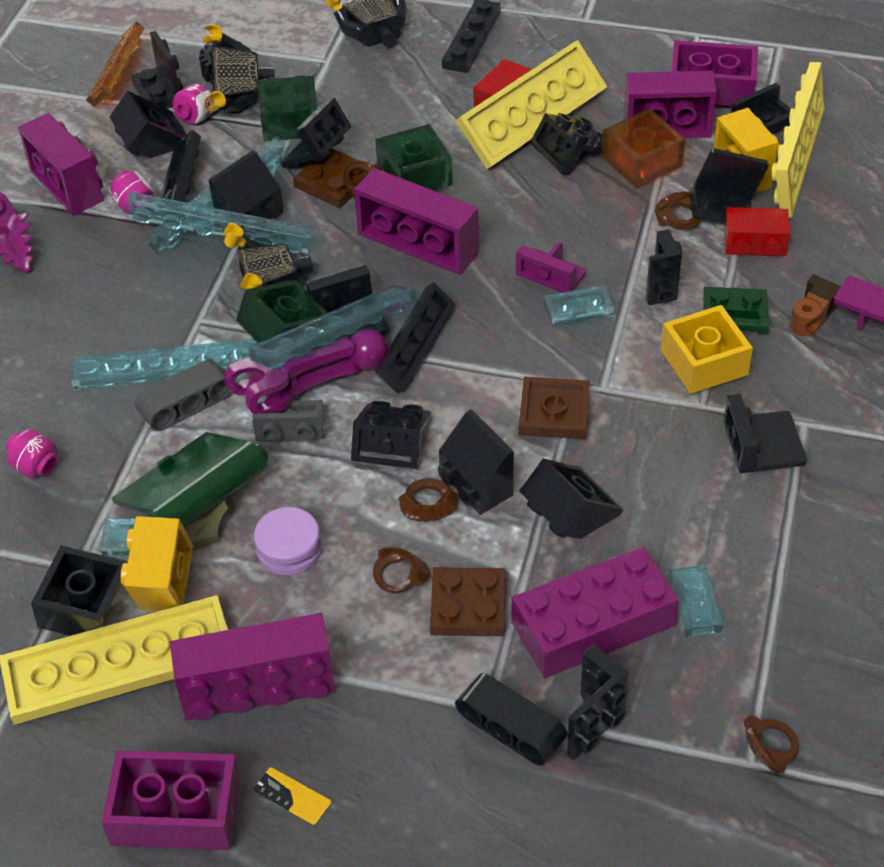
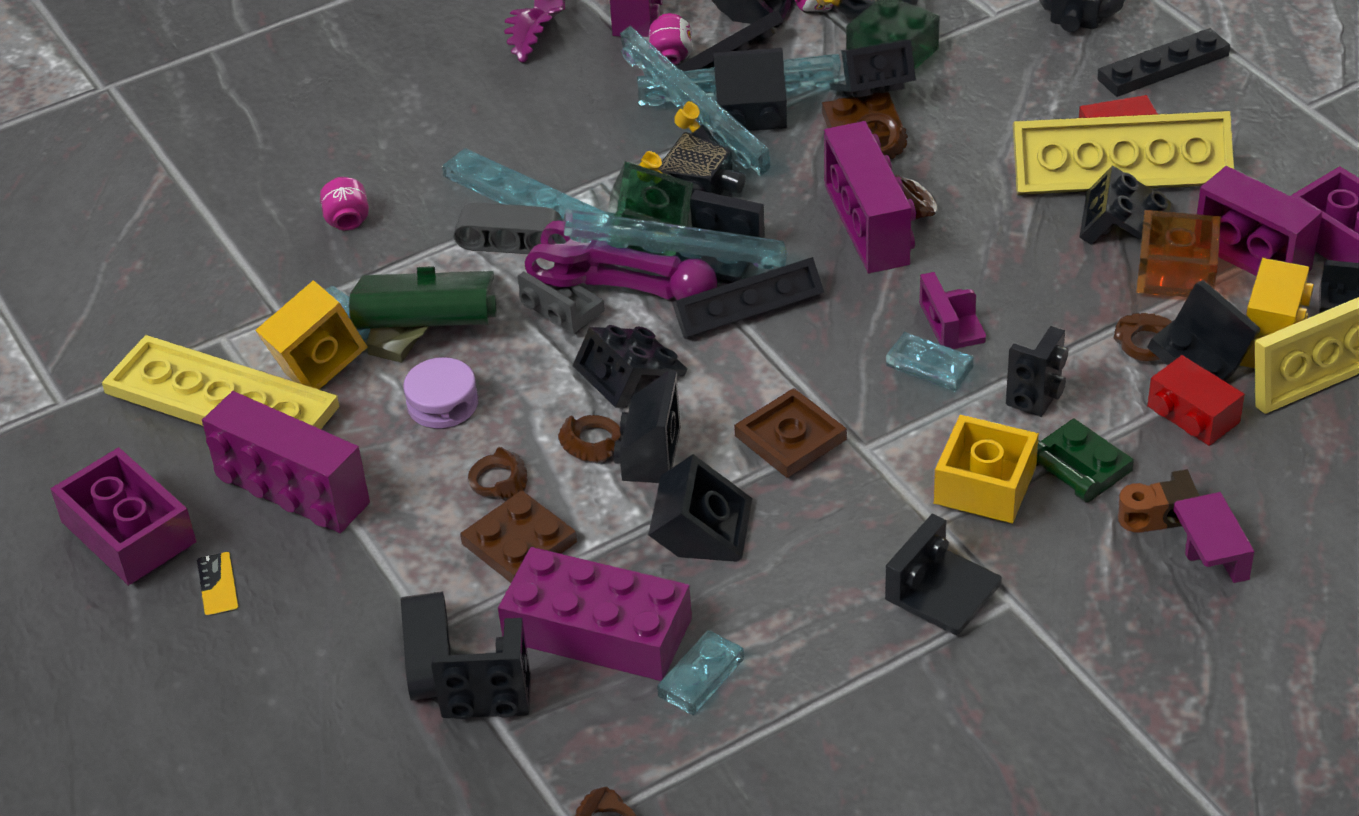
camera: 45 degrees right, 5 degrees down
(76, 591) = (230, 318): black slope -> none
(416, 157) = (937, 144): clear green brick -> none

